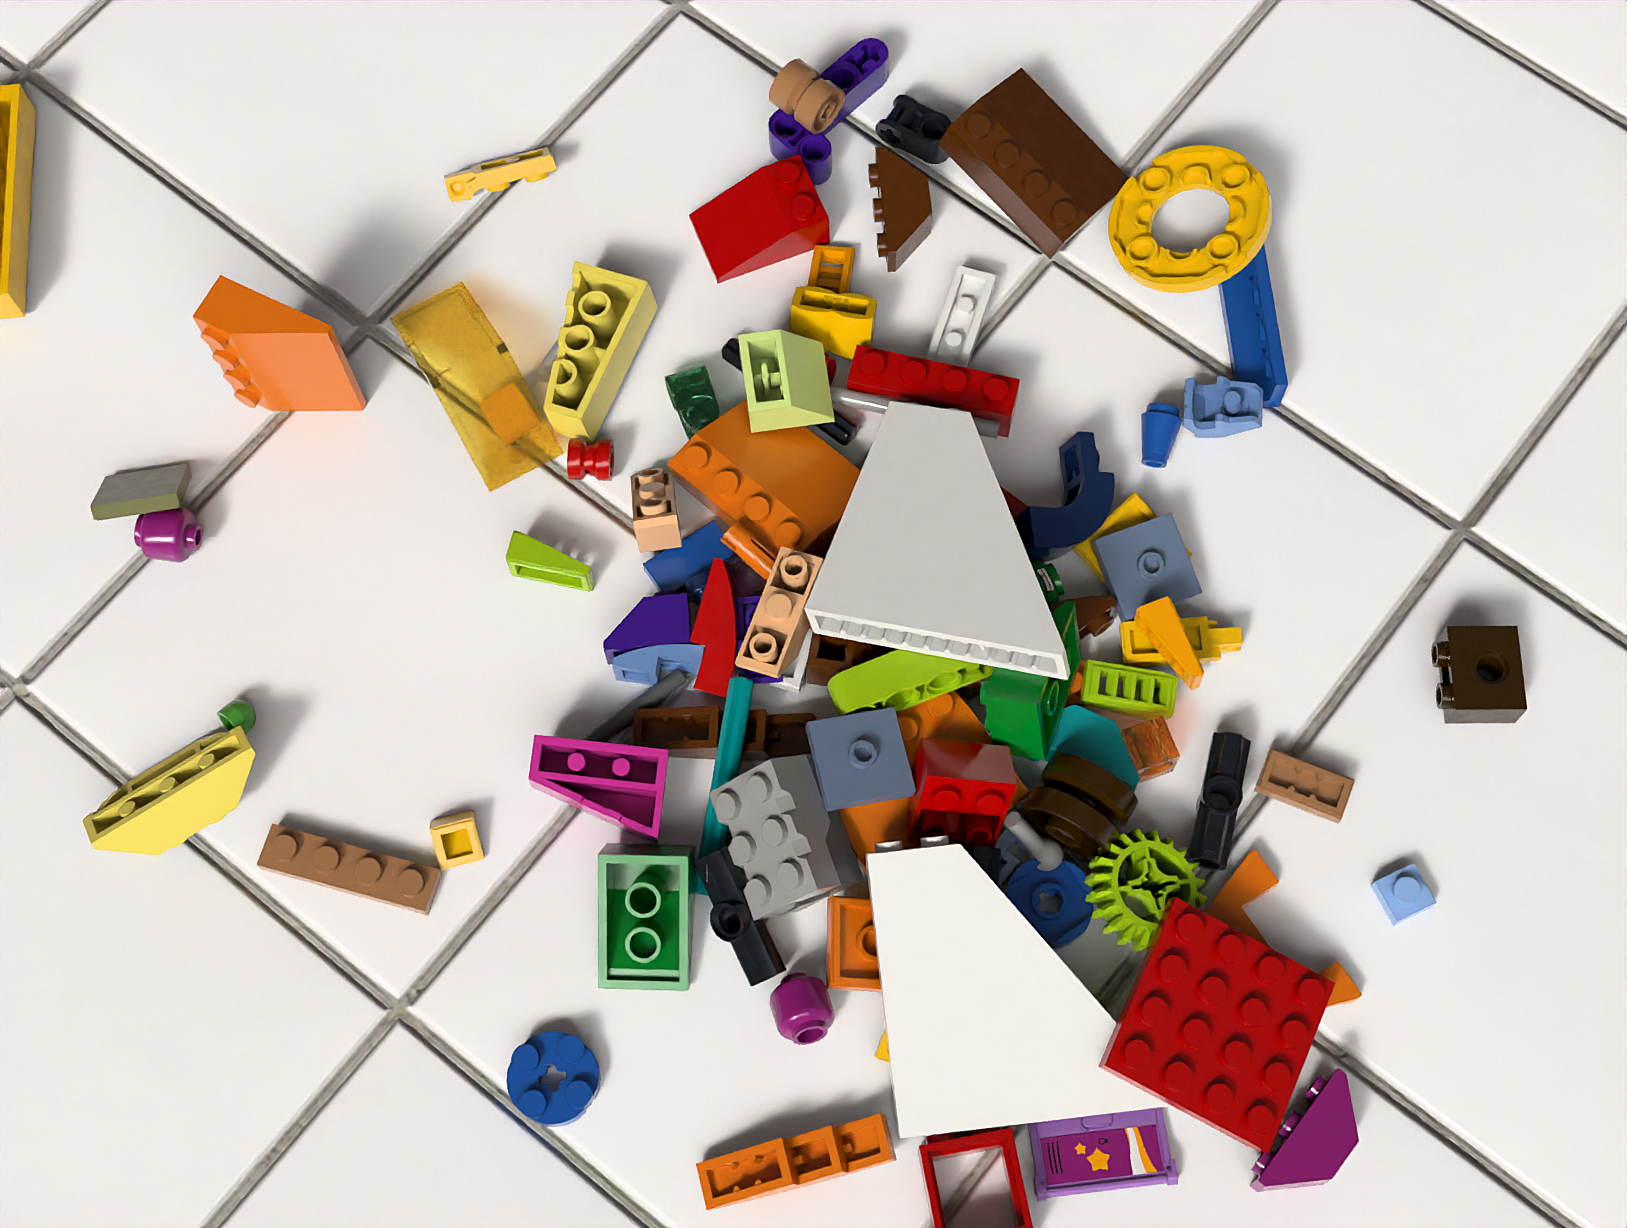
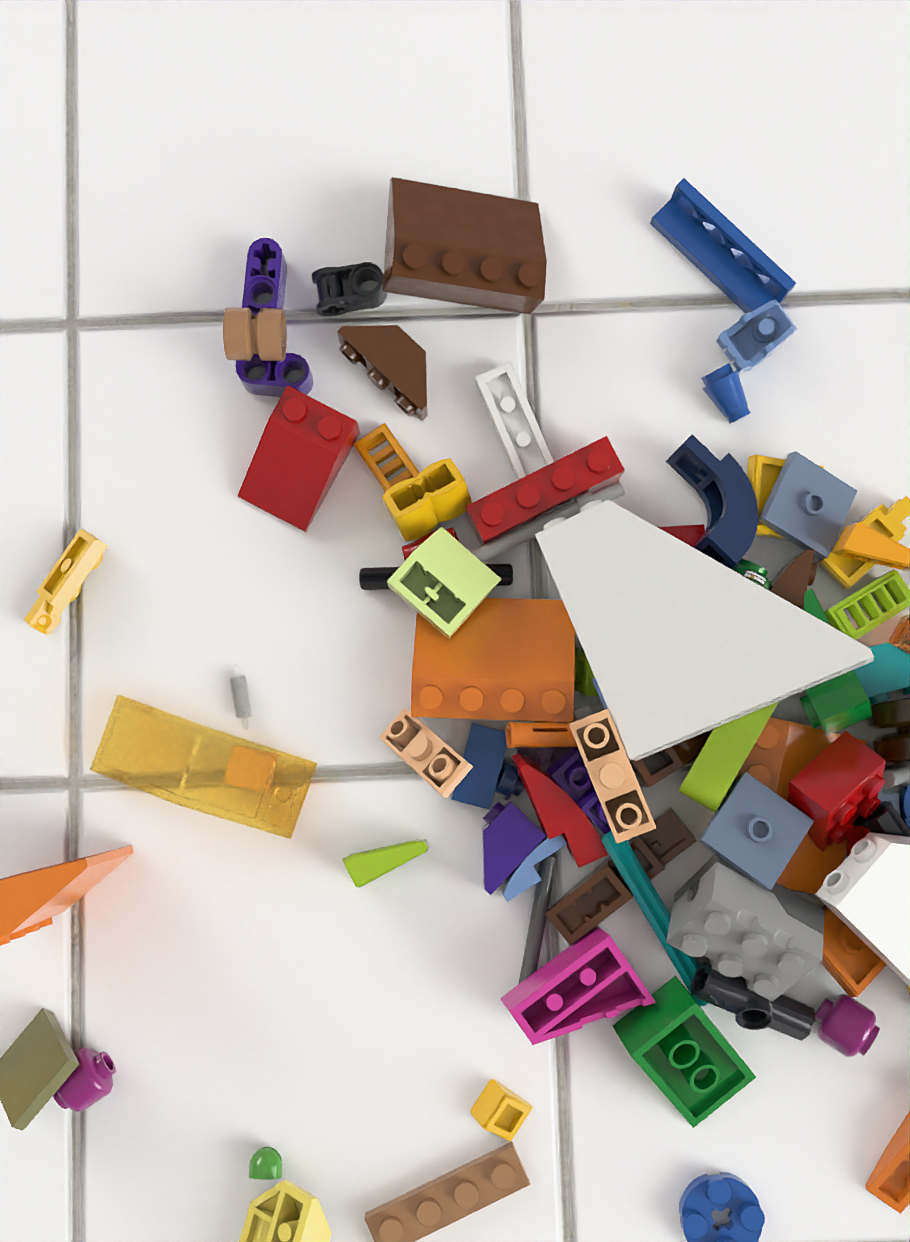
camera: 45 degrees left, 15 degrees up
(590, 459) = (342, 753): red wheel -> none
(596, 347) = (269, 665): light yellow wedge -> none
(693, 398) = (374, 641): clear green piece -> none
(1179, 171) = (579, 163): yellow plate -> none

